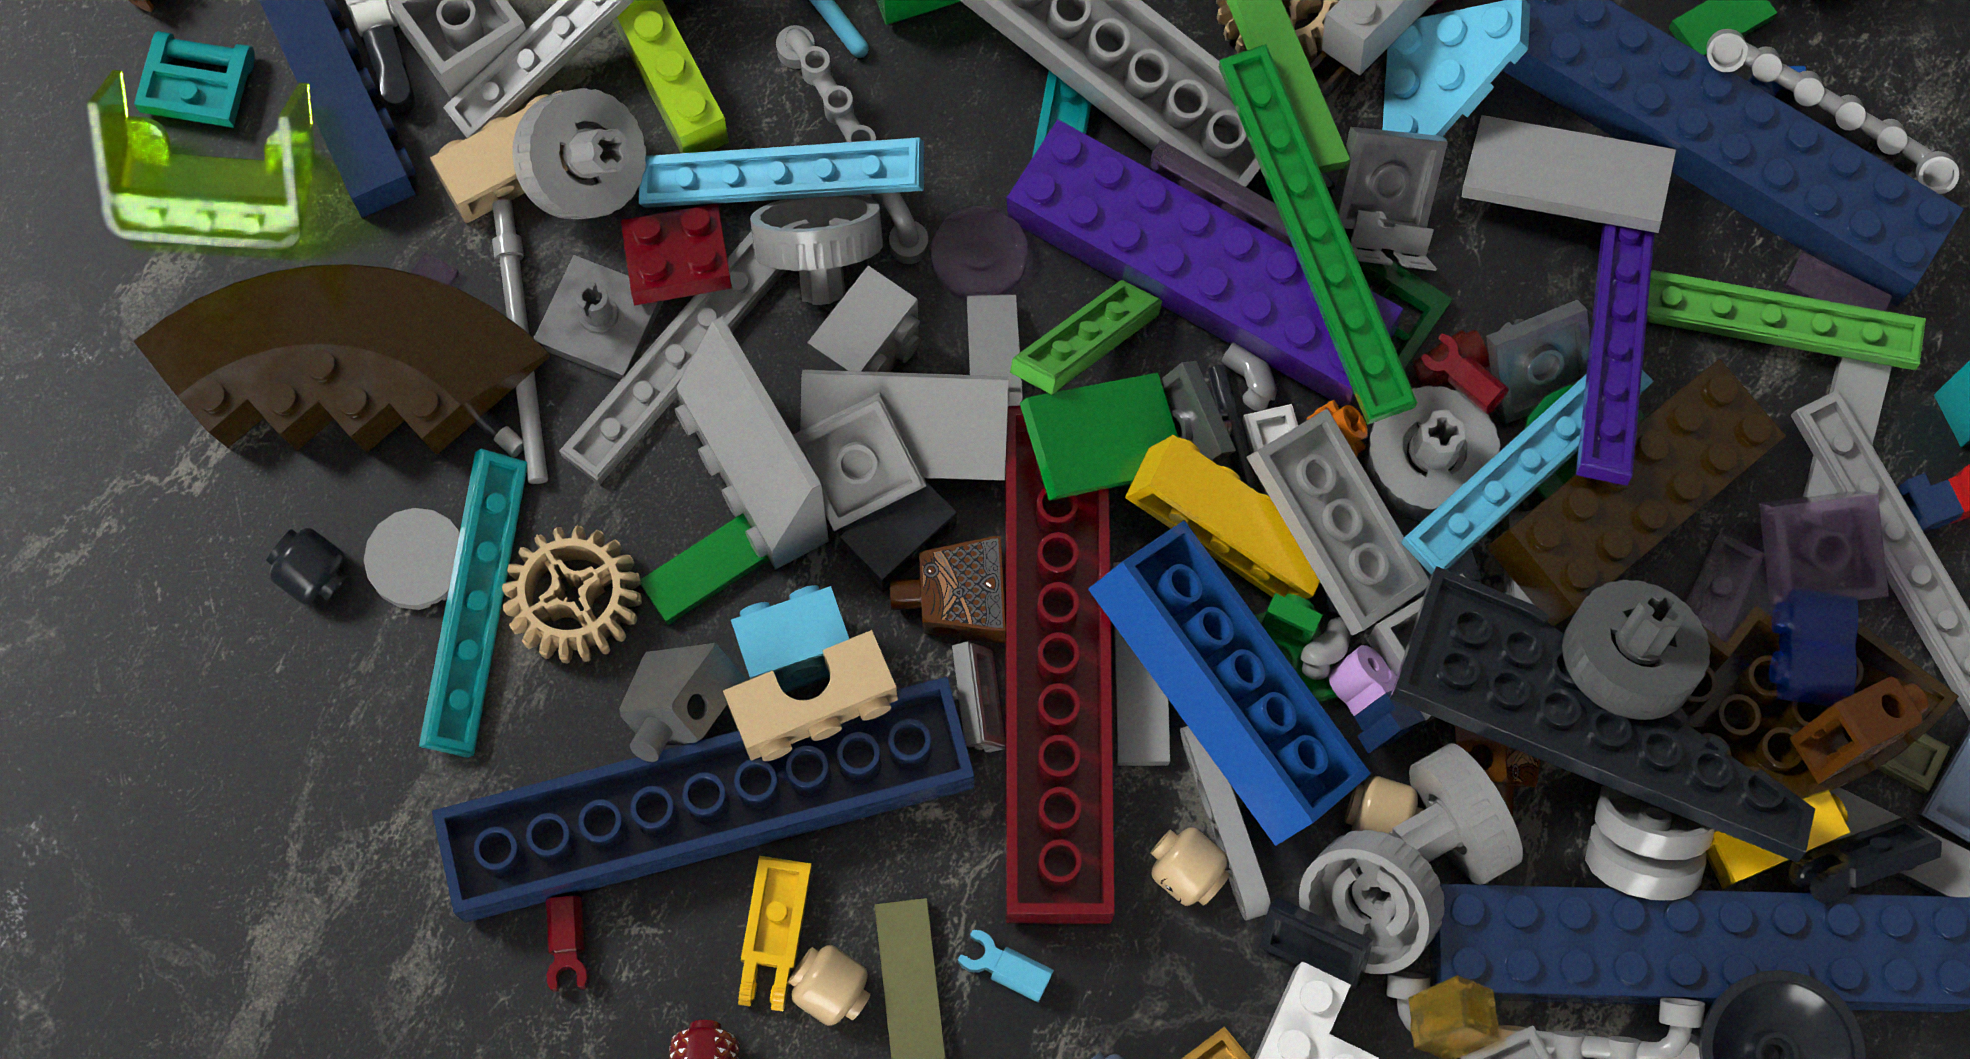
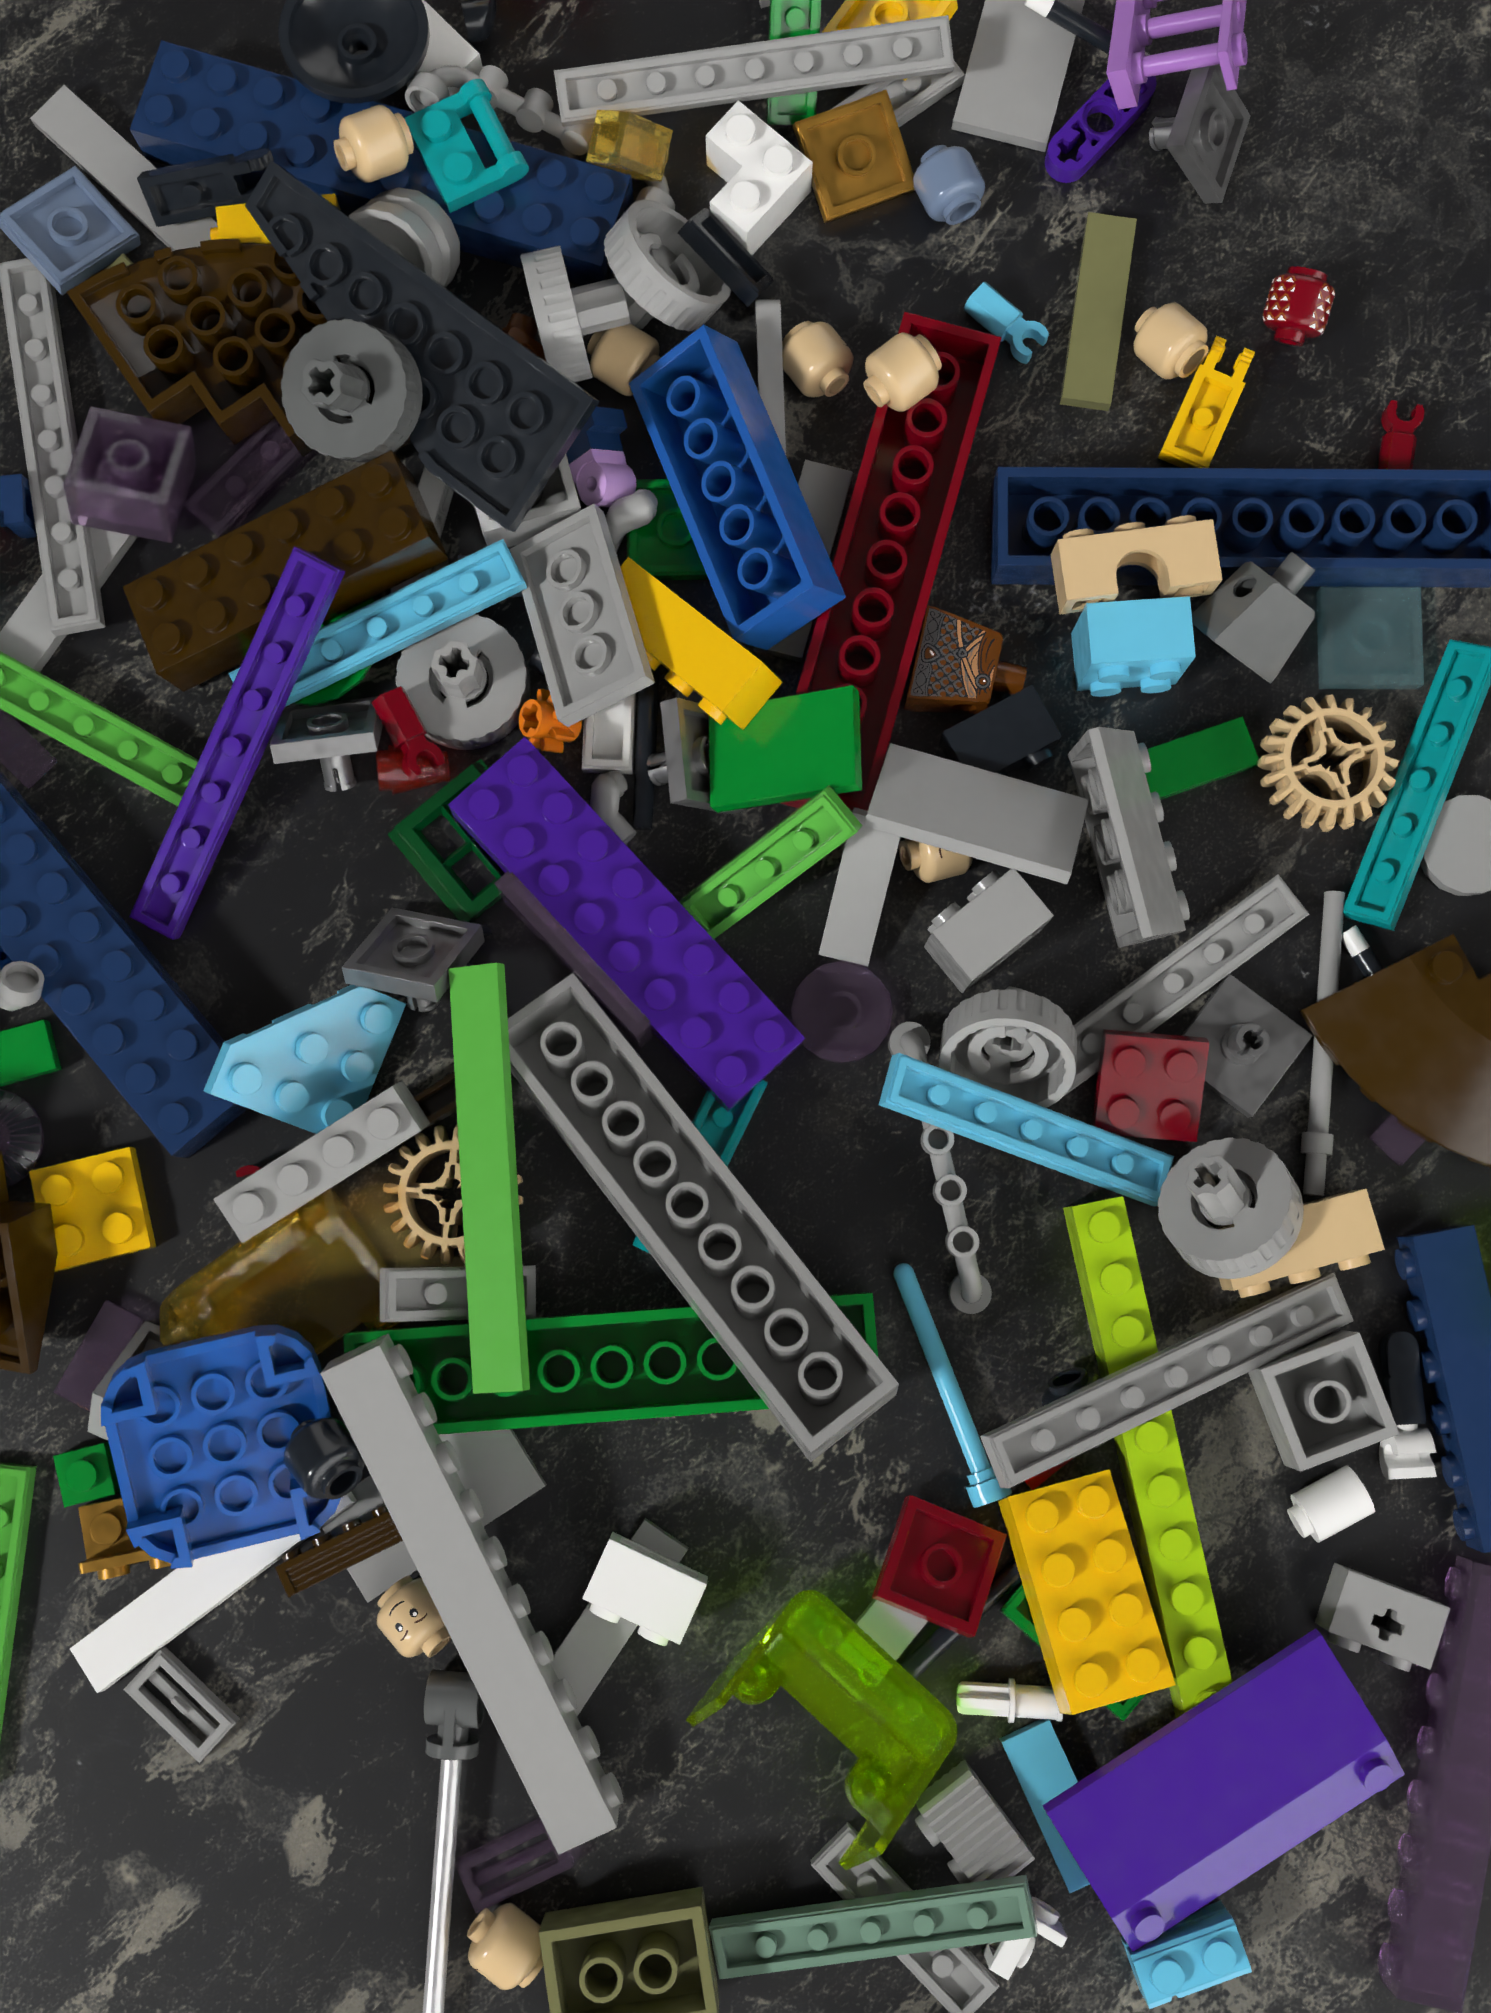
camera: 160 degrees left, 10 degrees up
(552, 732) = (1370, 638): none -> clear light blue tile
(860, 461) = (1032, 789): light grey tile -> none
(978, 697) = (966, 561): light grey tile -> none
(1098, 831) = (902, 371): none -> tan head
(1292, 617) = (652, 547): green plate -> none
(1317, 235) = (512, 892): green tile -> none
(1373, 234) = (440, 915): light grey piece -> none
(1569, 173) = (226, 920): light grey tile -> none
(1633, 949) = (451, 154): none -> teal plate
(1714, 925) = (373, 143): none -> tan head
(1815, 647) = (182, 356): clear blue brick -> none
(1872, 720) = (172, 263): reddish brown torso -> none

